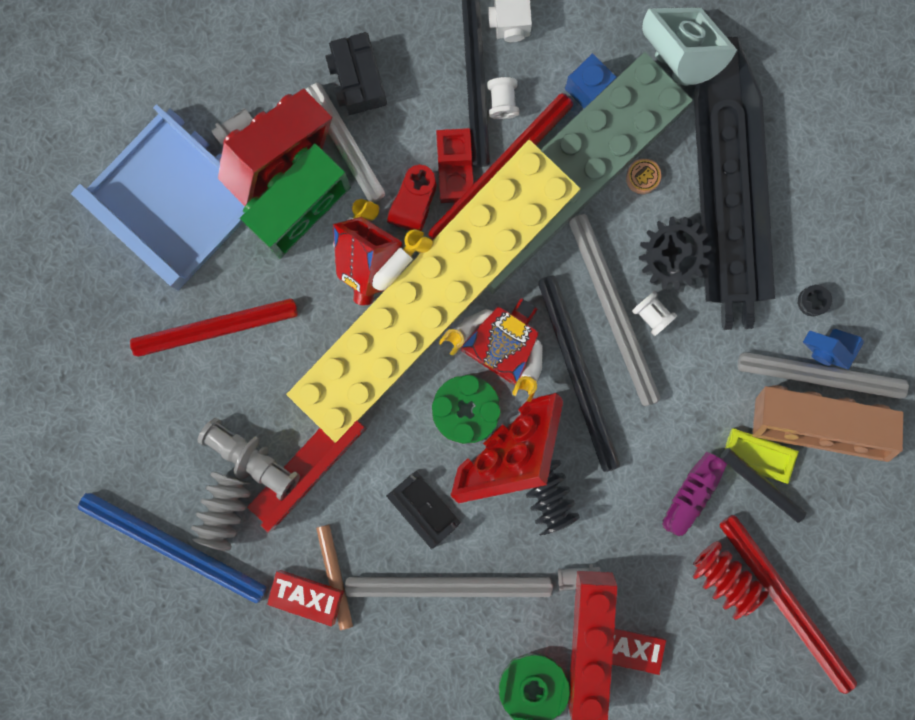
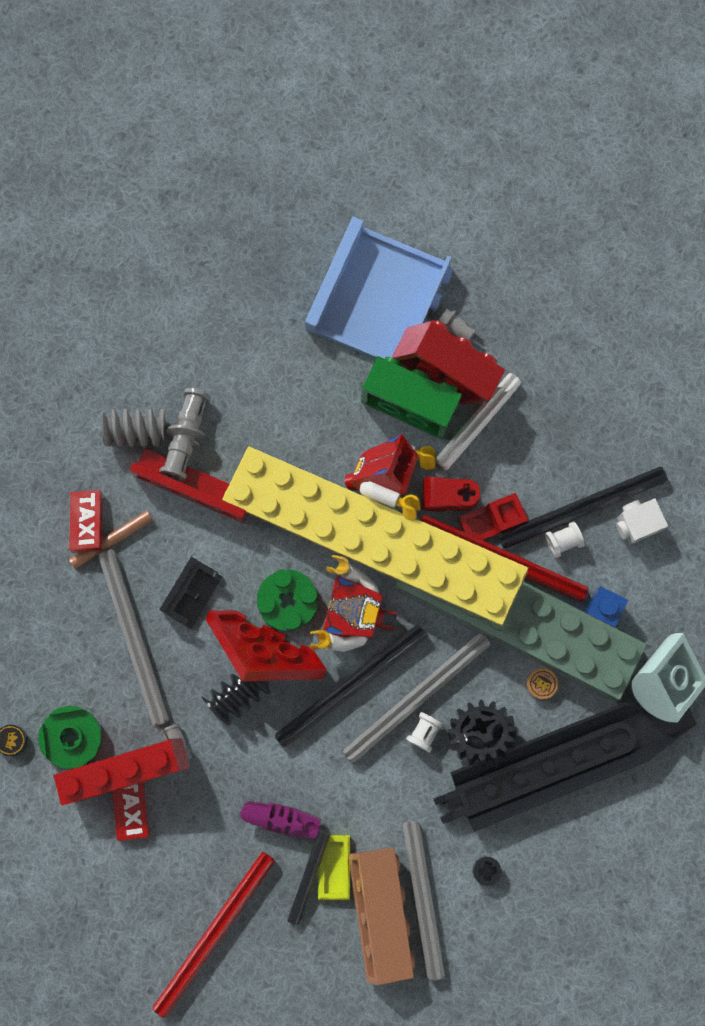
camera: 70 degrees right, 5 degrees down
(172, 547) = (91, 400): blue axle -> none
(213, 327) = (284, 369): red axle -> none
(357, 74) = (539, 410): black brick -> none
(729, 580) = (215, 872): red piece -> none
(837, 349) = (449, 905): blue bracket -> none

